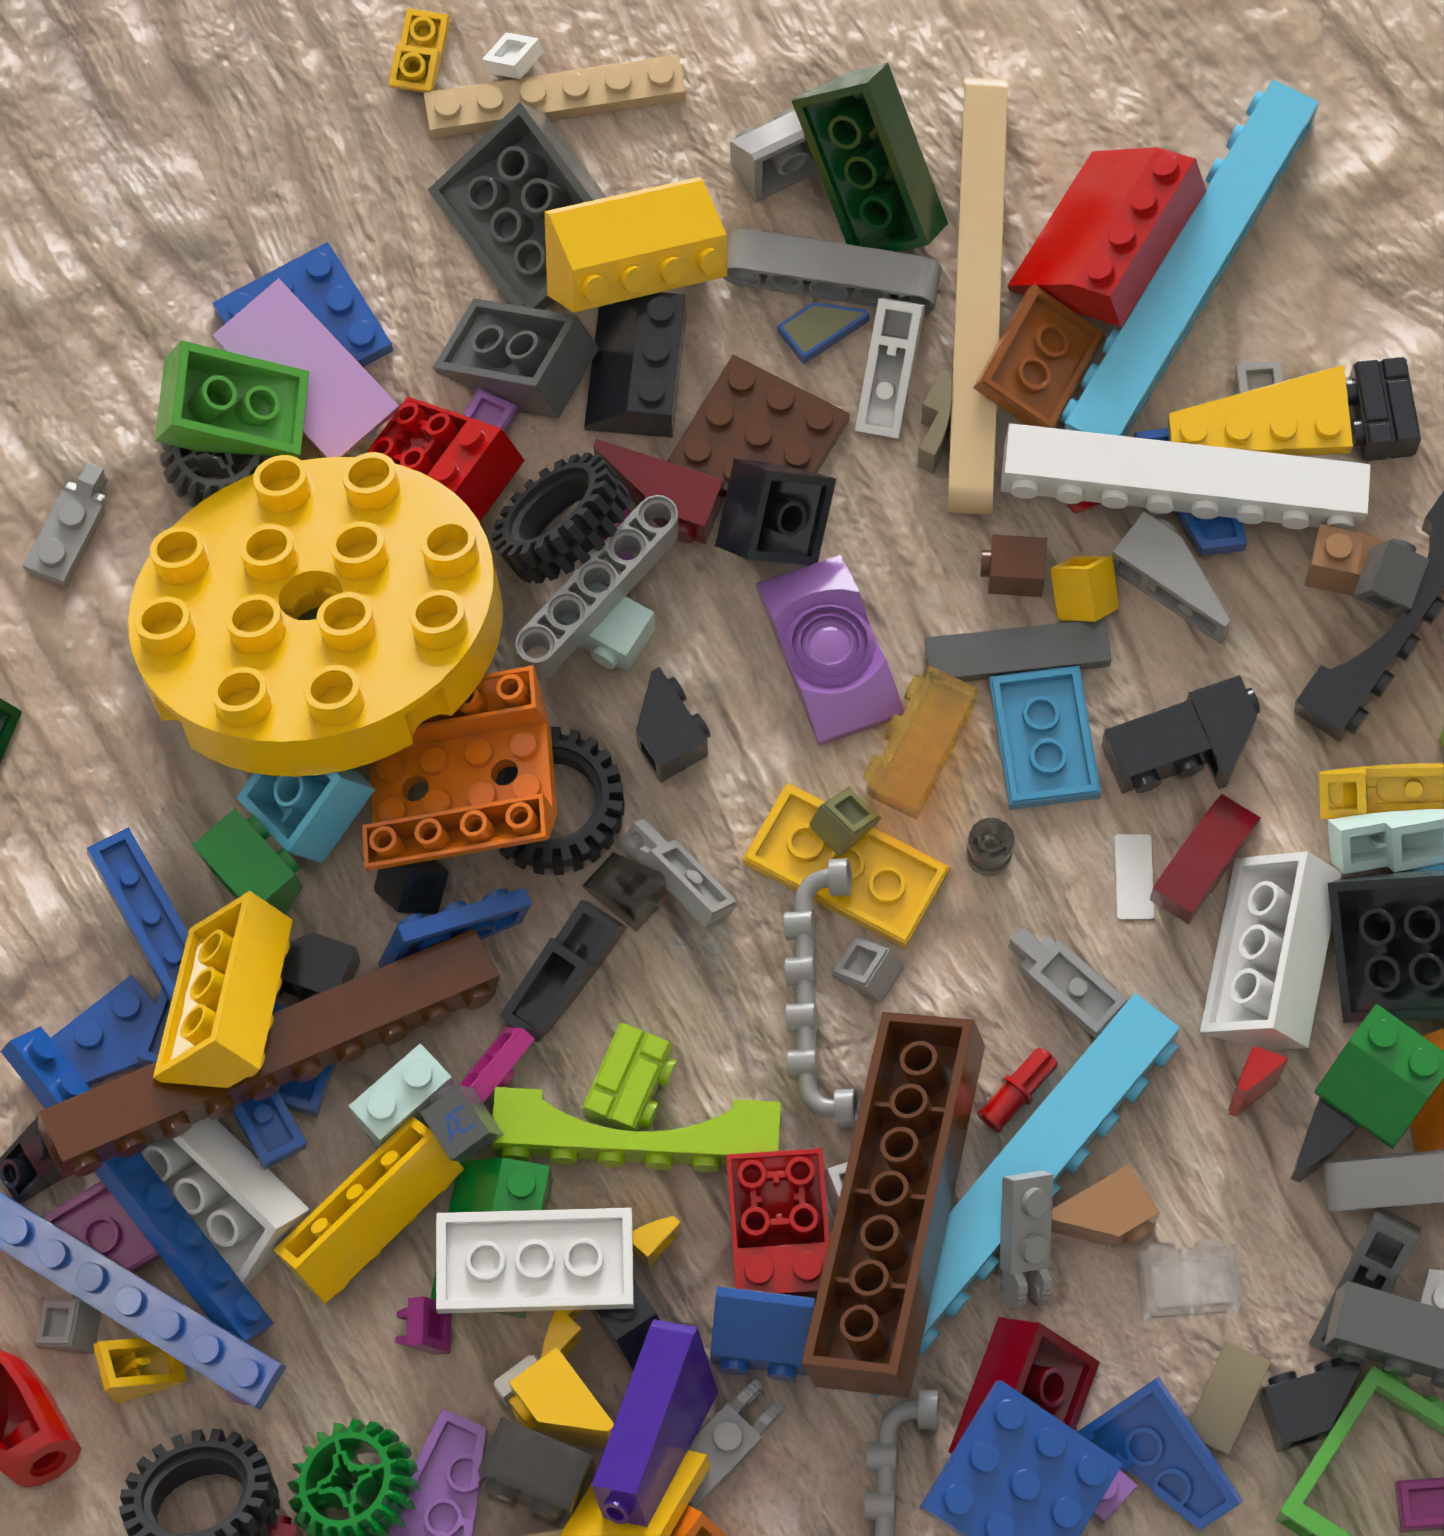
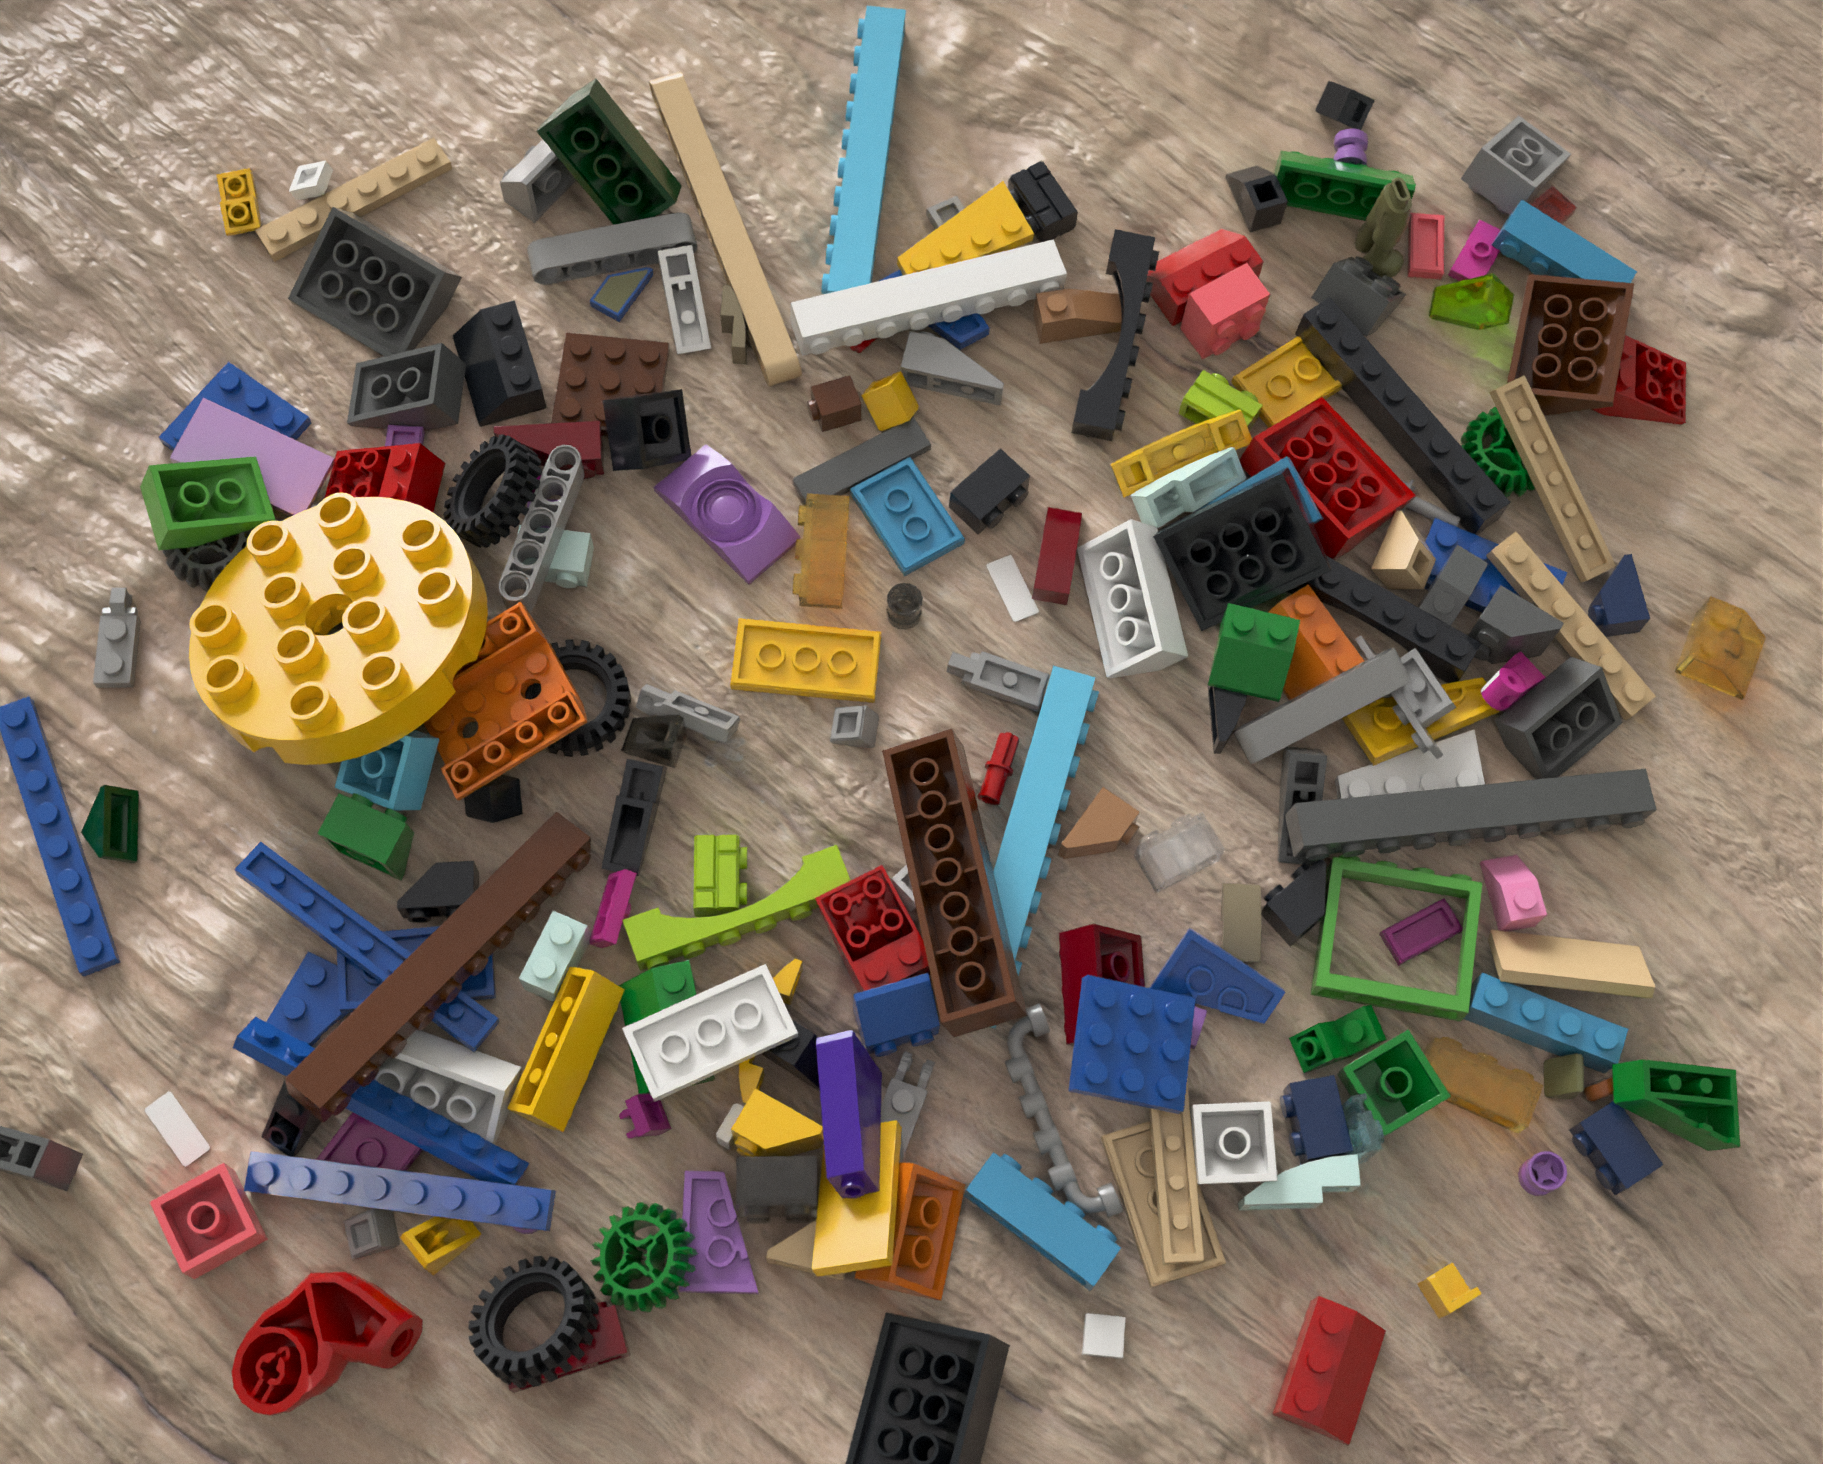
camera: 30 degrees left, 0 degrees up
(225, 995) = (391, 934): yellow slope -> none
(460, 1122) = (609, 955): dark grey brick -> none
(489, 916) = (563, 798): blue wing -> none
(633, 245) = (461, 277): yellow slope -> none
(667, 731) = (636, 615): black slope -> none
(803, 1015) = (823, 777): light grey bar -> none
(843, 820) = (792, 628): olive slope -> none
(1026, 1238) = (1055, 869): light grey hinge -> none
(1039, 359) = (788, 254): dark orange tile -> none
(1112, 231) = (800, 148): red slope -> none
(1228, 718) = (1032, 451): black slope -> none
(1257, 1078) = (1162, 691): red slope -> none
(1391, 576) = (1102, 310): dark grey brick -> none

